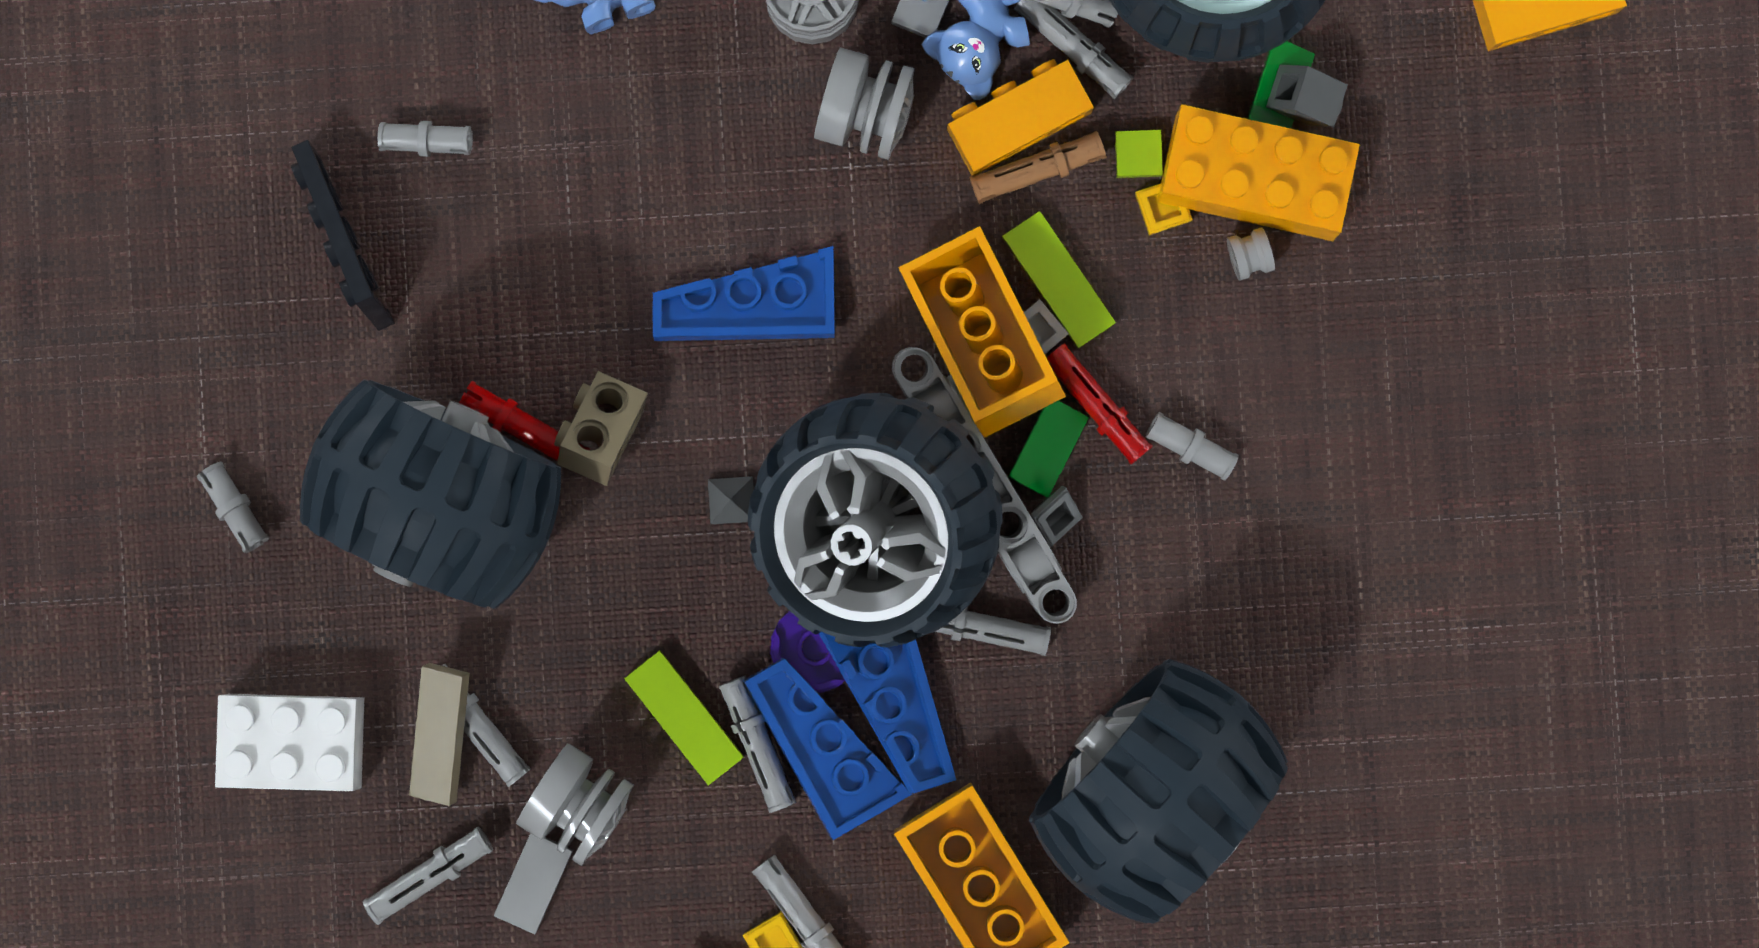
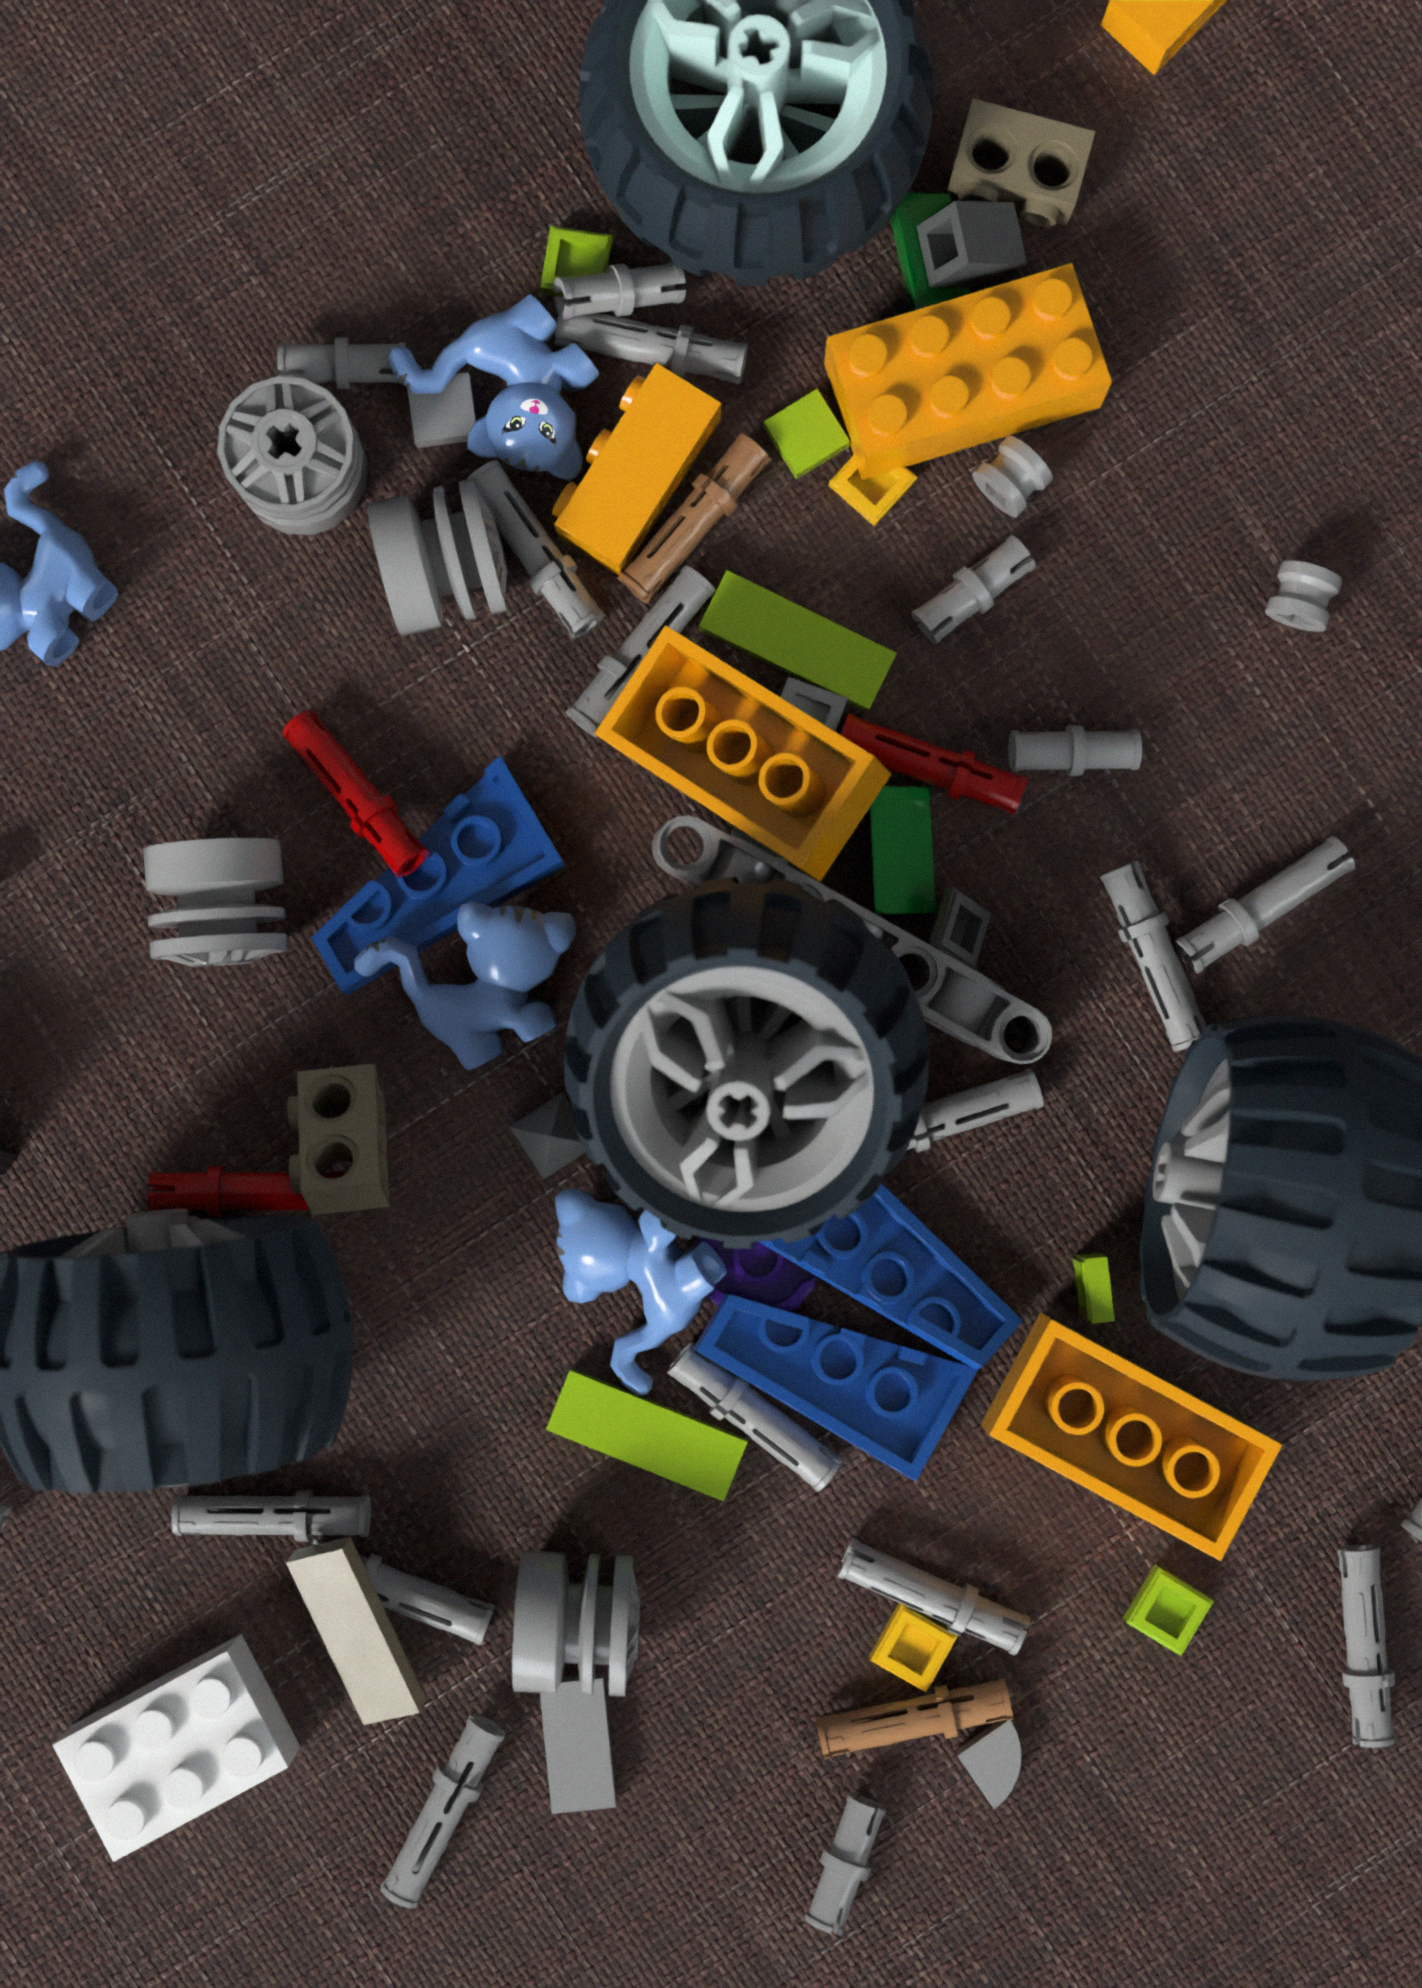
camera: 40 degrees left, 0 degrees up
(425, 634) = (272, 1515): none -> light grey pin
(608, 237) = (215, 899): none -> light grey wheel
(724, 589) = (607, 1249): none -> medium blue animal
(733, 235) = (371, 813): none -> red pin
(768, 374) = (510, 955): none -> medium blue animal
(928, 132) = (550, 570): none -> light grey pin
(988, 218) = (686, 595): none -> light grey pin
(1011, 784) = (1093, 1287): none -> lime tile
(1169, 598) = (1154, 952): none -> light grey pin
(1186, 310) = (973, 589): none -> light grey pin
(1254, 609) = (1243, 919): none -> light grey pin
(1376, 52) = (1023, 145): none -> dark tan brick
(1389, 431) = (1303, 595): none -> light grey wheel

